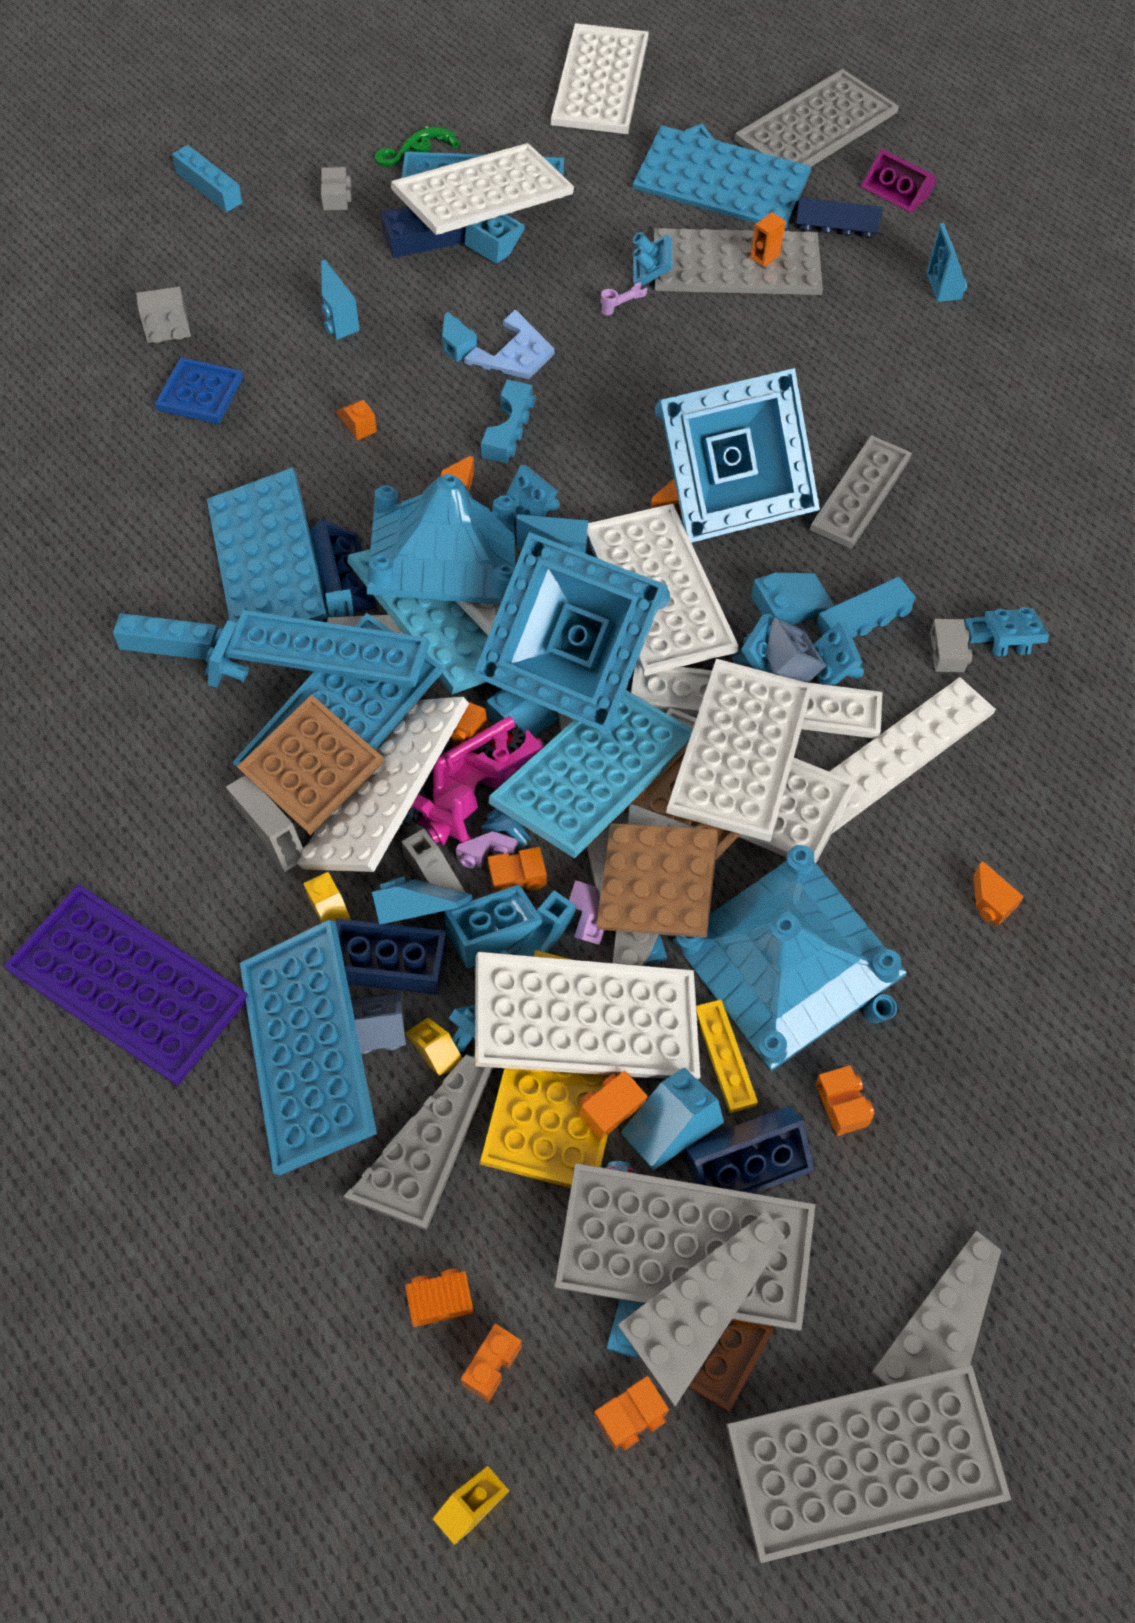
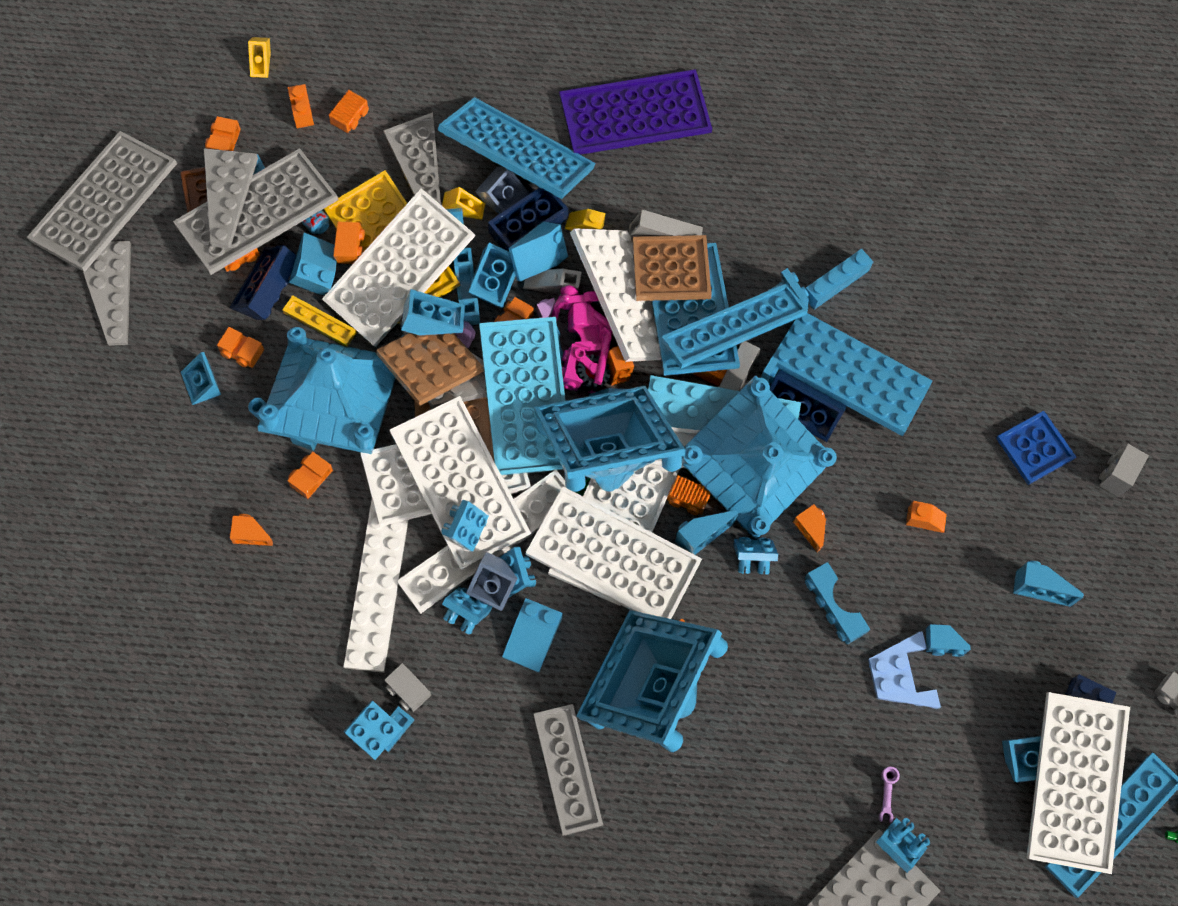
camera: 130 degrees right, 10 degrees up
(610, 918) = (431, 315): none -> dark azure slope
(787, 687) = (466, 526): none -> dark azure plate
(869, 608) = (479, 665): dark azure brick -> none
(882, 898) = (310, 475): none -> orange brick
(921, 1103) = (200, 380): none -> dark azure slope

